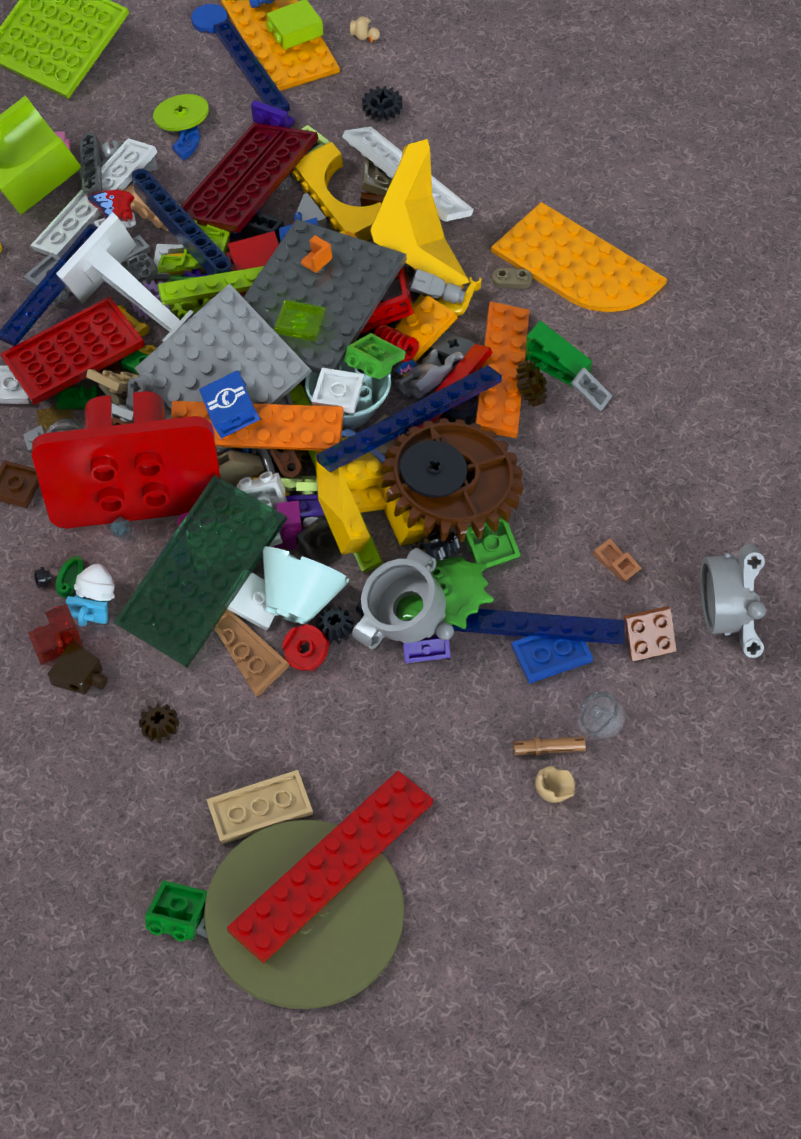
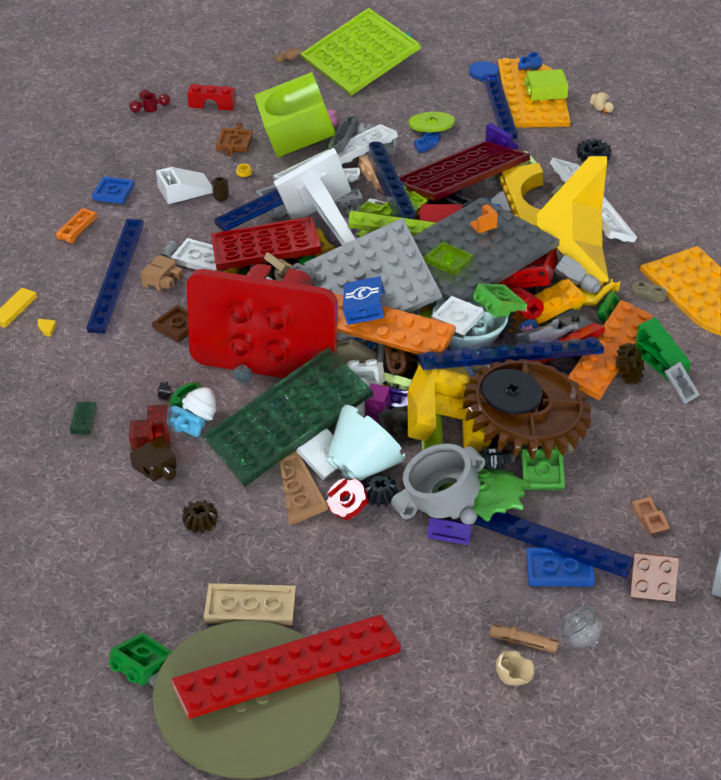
camera: 20 degrees right, 15 degrees down
(113, 202) = (350, 160): red arm -> none
(479, 314) = (608, 306): none -> green plate

